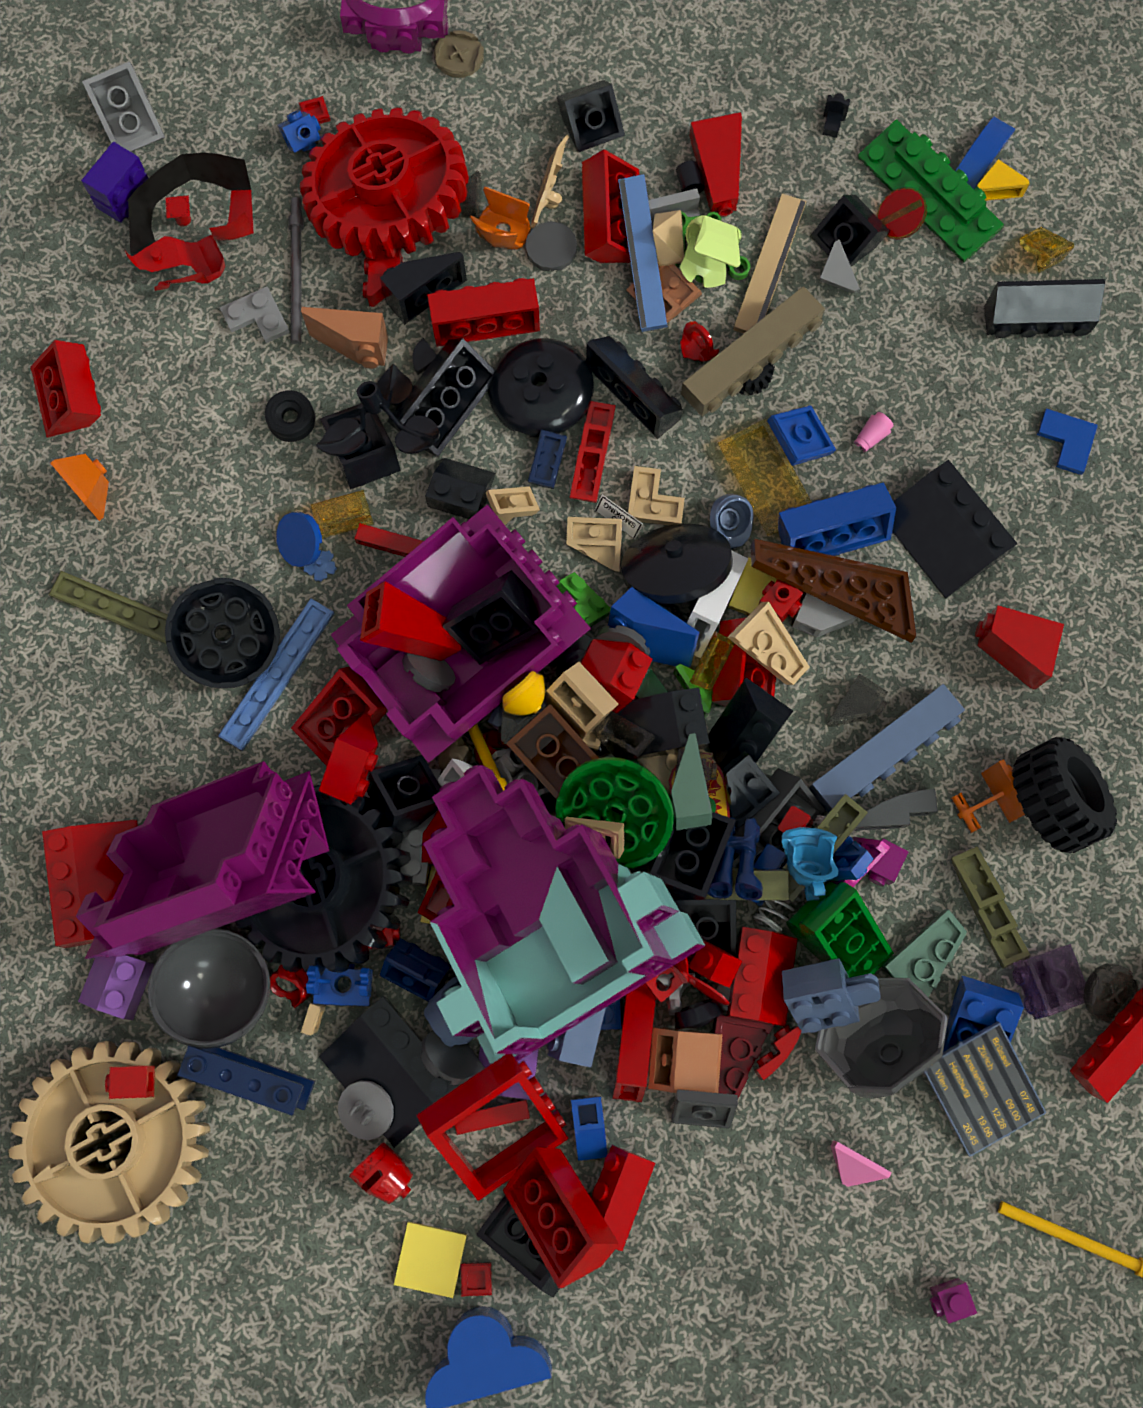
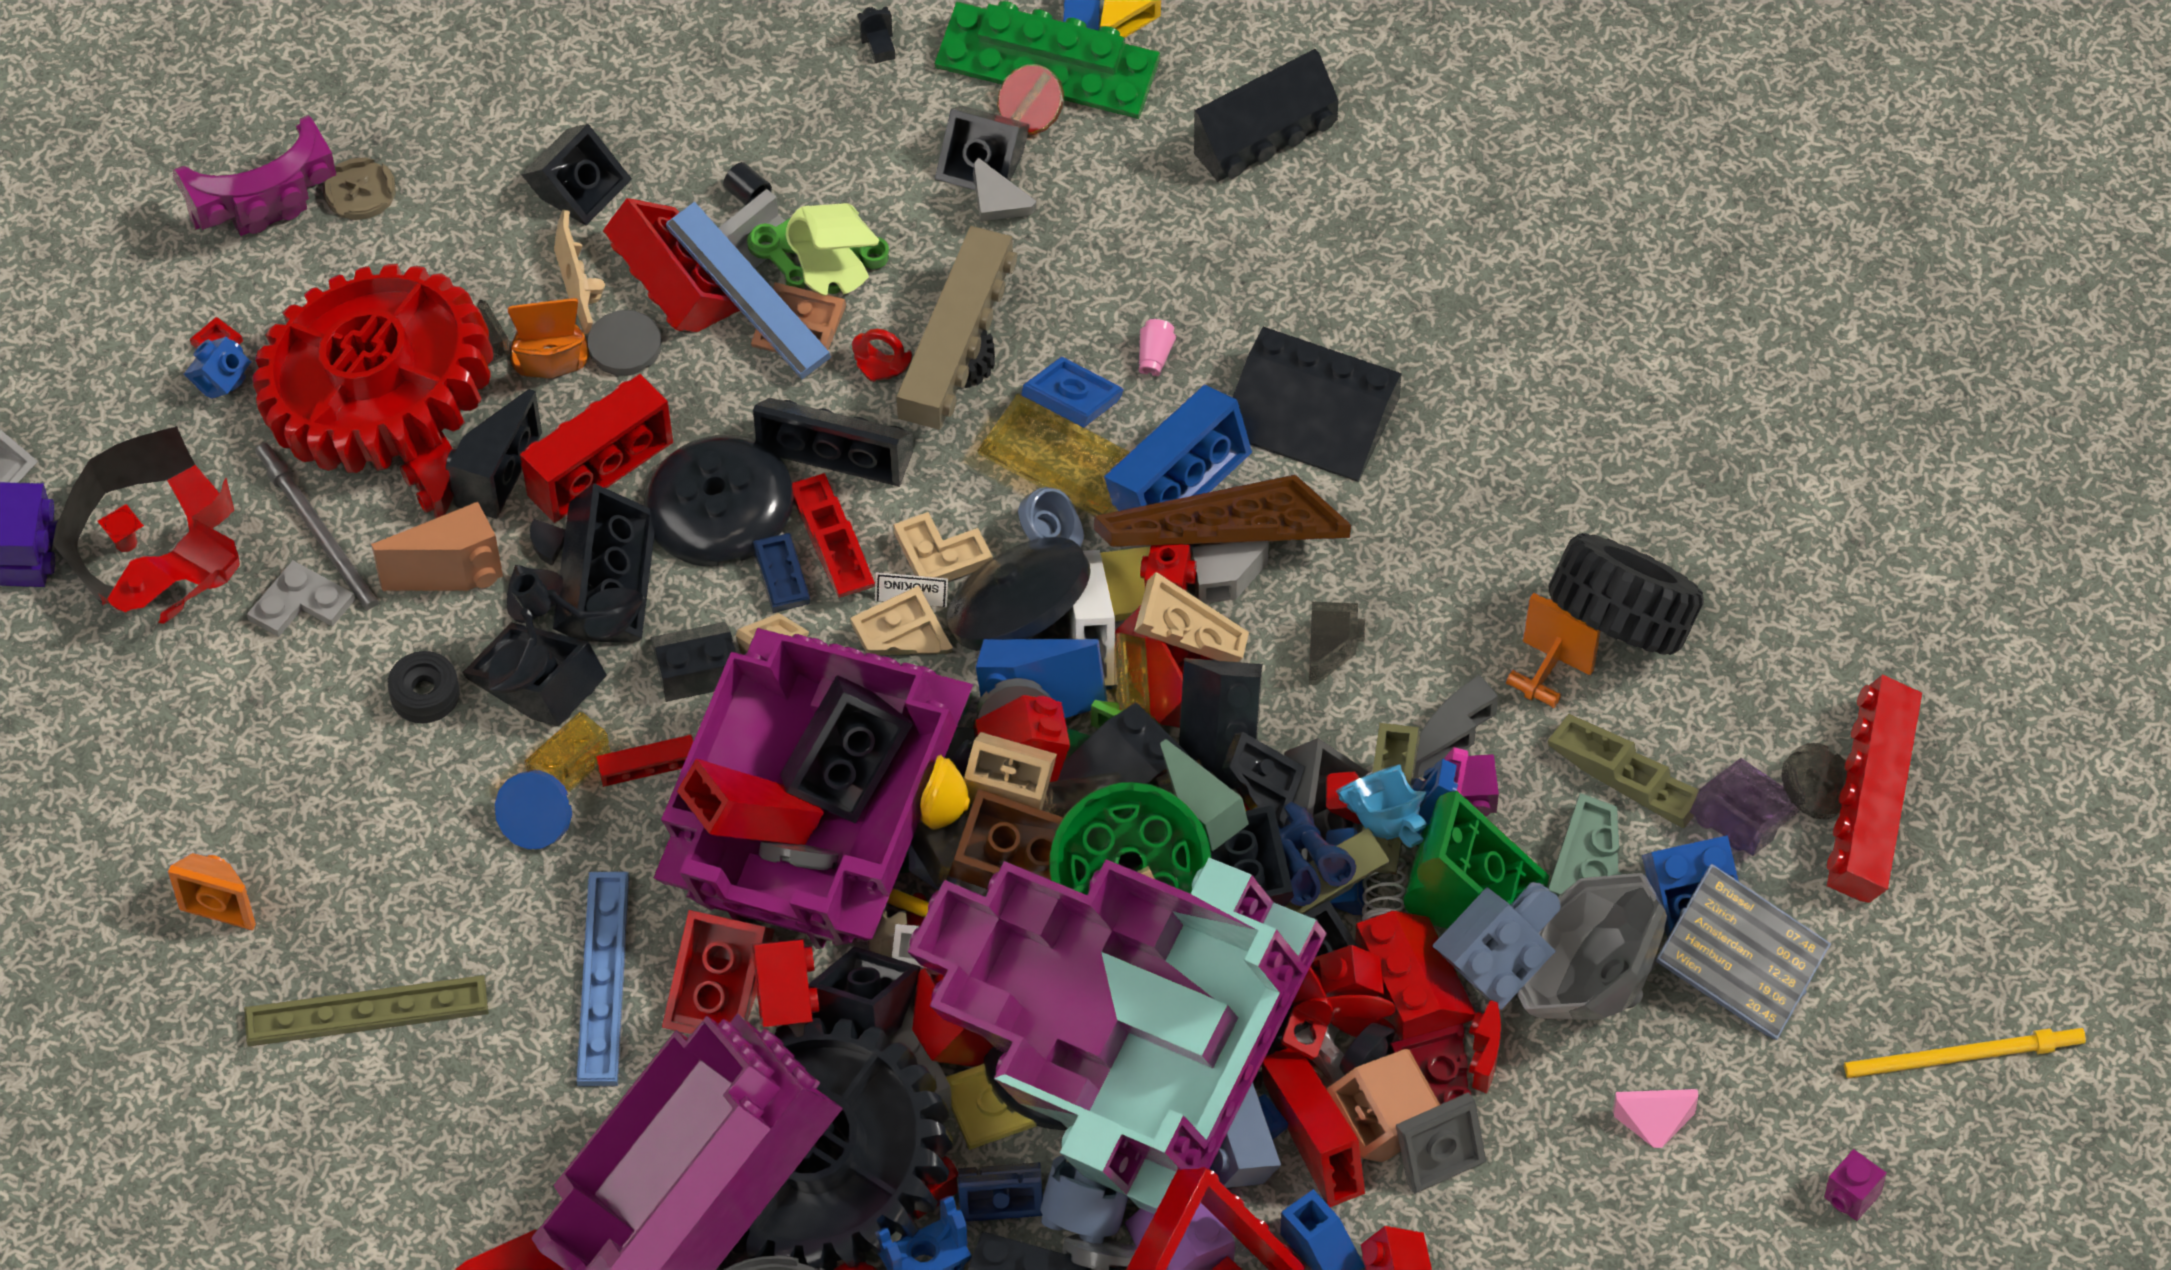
camera: 30 degrees left, 20 degrees down
(65, 388) = (107, 803): red slope -> none
(217, 606) = (517, 927): black brick -> none
(321, 566) = (577, 834): medium blue plant -> none
(435, 899) = (978, 1094): red slope -> none
(668, 237) = (769, 258): tan slope -> none
(718, 152) = (765, 139): red slope -> none
(770, 262) = (907, 230): tan tile -> none
(888, 747) = (1400, 661): sand blue brick -> none
(1021, 643) = (1474, 475): red slope -> none
(1047, 247) = (1227, 51): clear yellow slope -> none
(1074, 434) = (1390, 234): blue tile -> none

